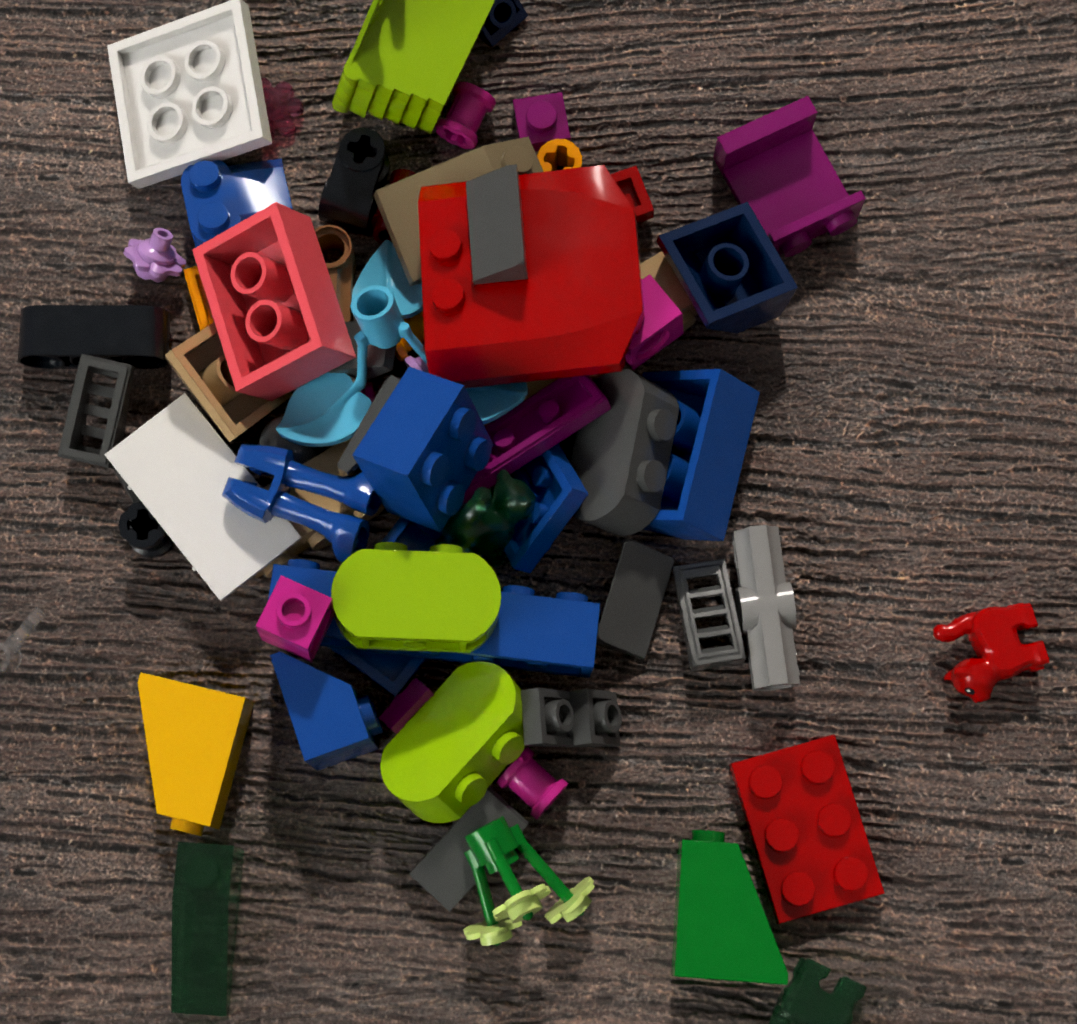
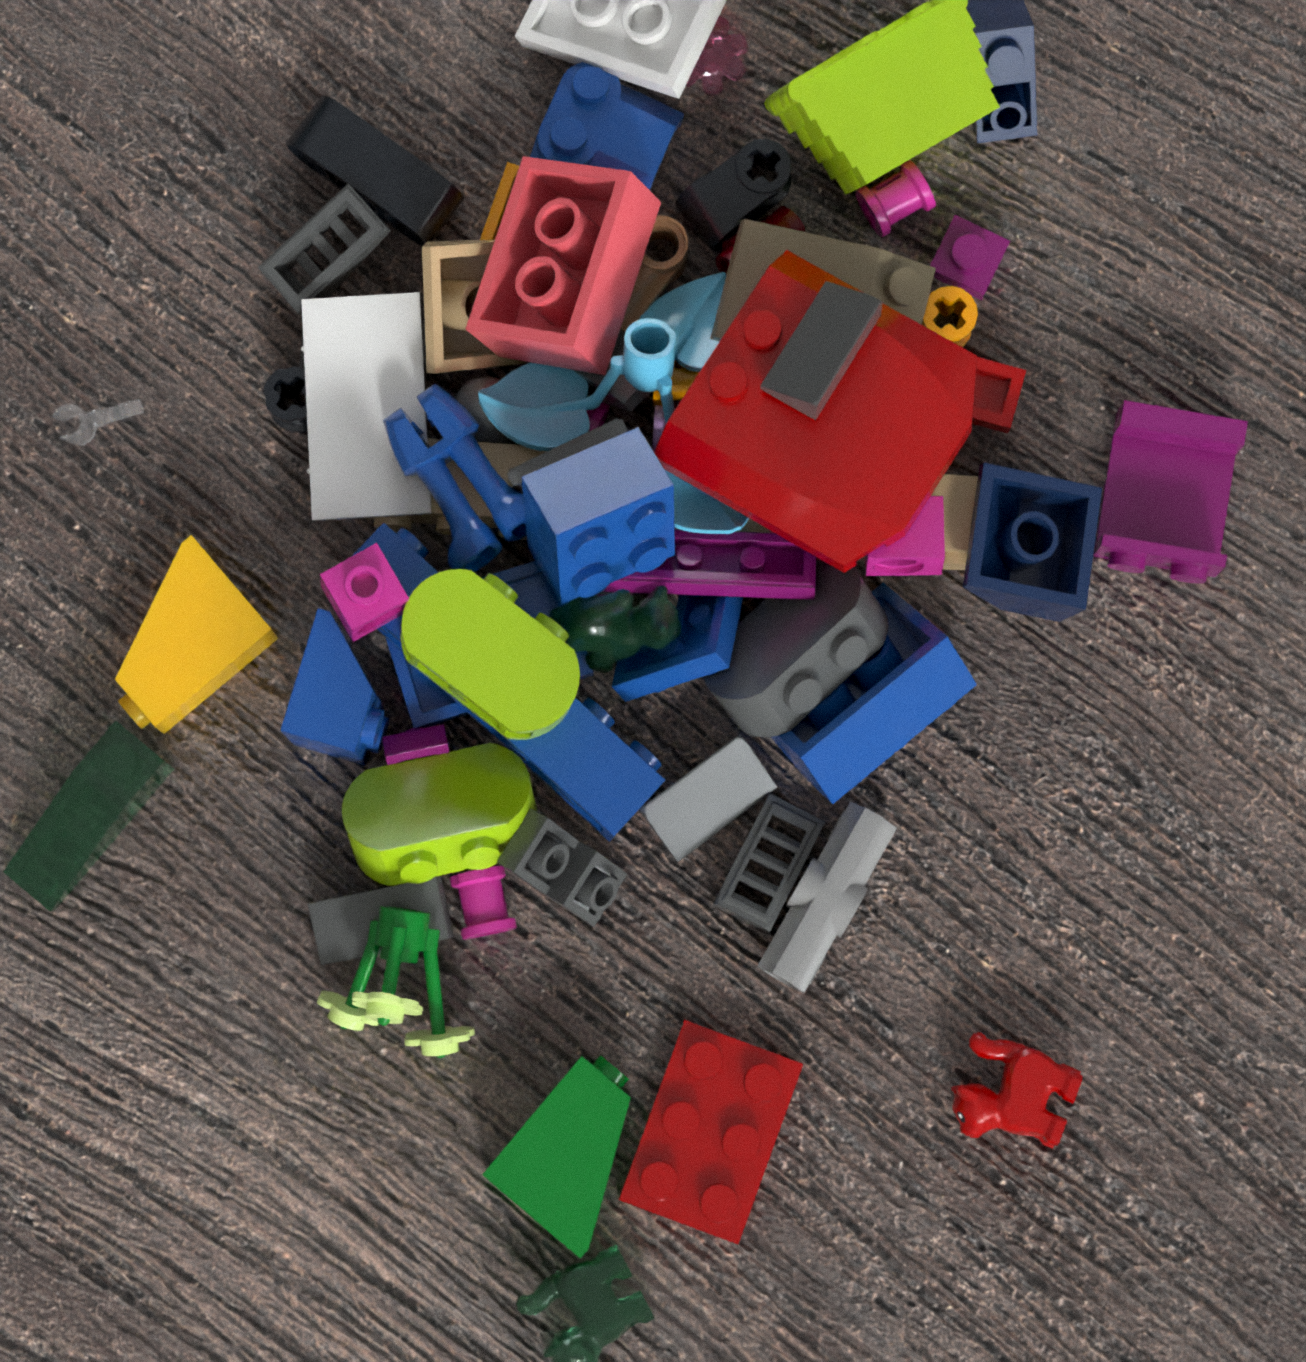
camera: 35 degrees right, 5 degrees up
(155, 256) = (488, 130): lavender plant -> none

